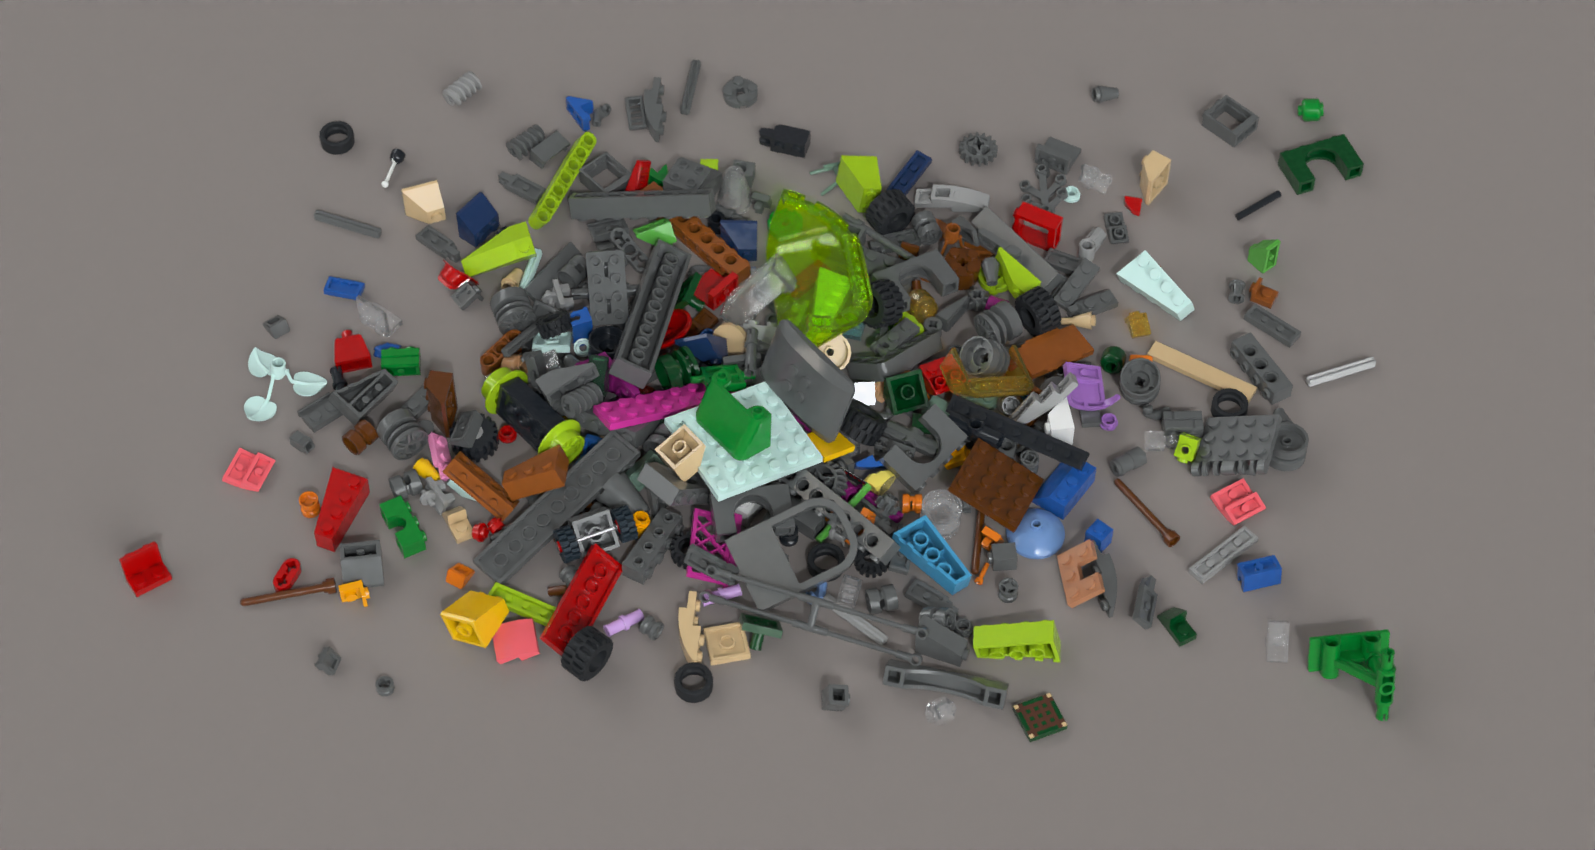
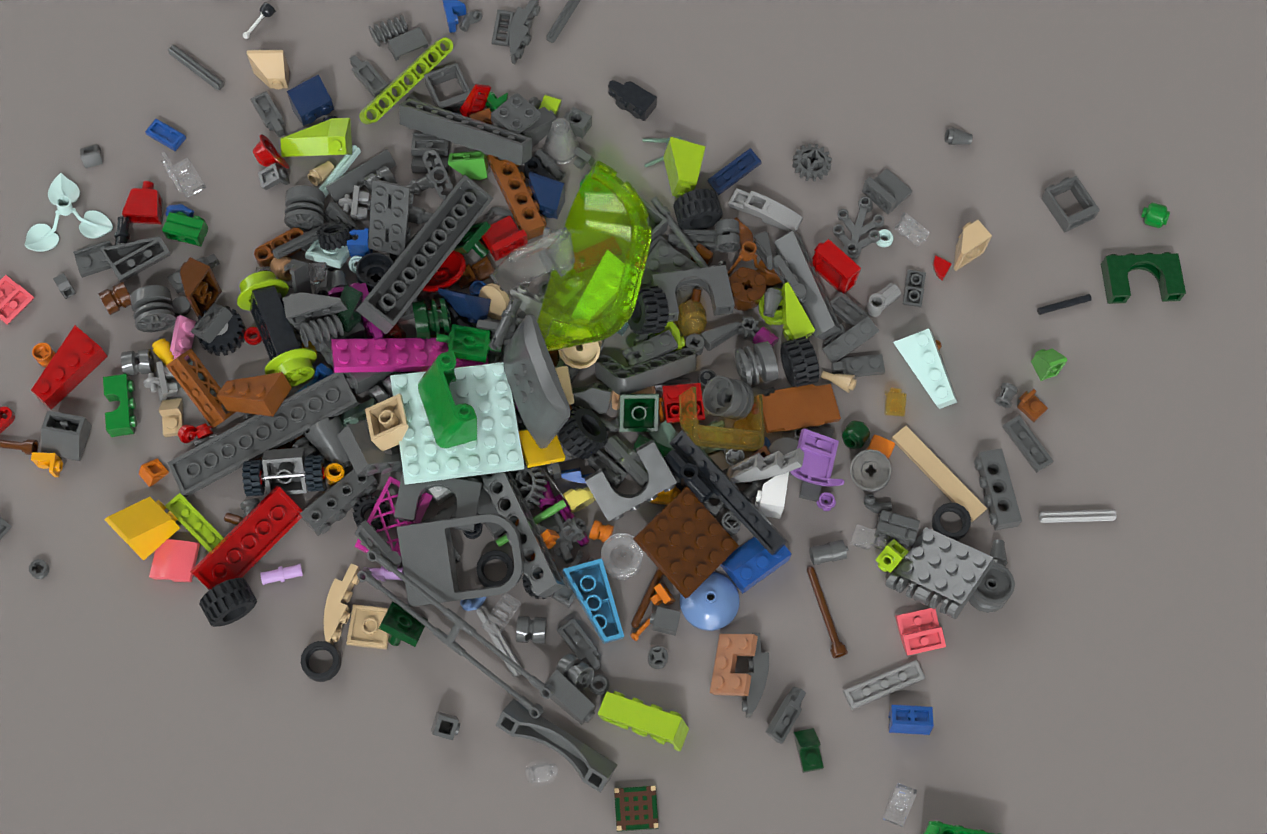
camera: 15 degrees right, 15 degrees up
(651, 627) = (304, 588): dark grey wheel -> none
(737, 85) = (611, 25): dark grey plate -> none
(1100, 533) = (767, 627): blue brick -> none

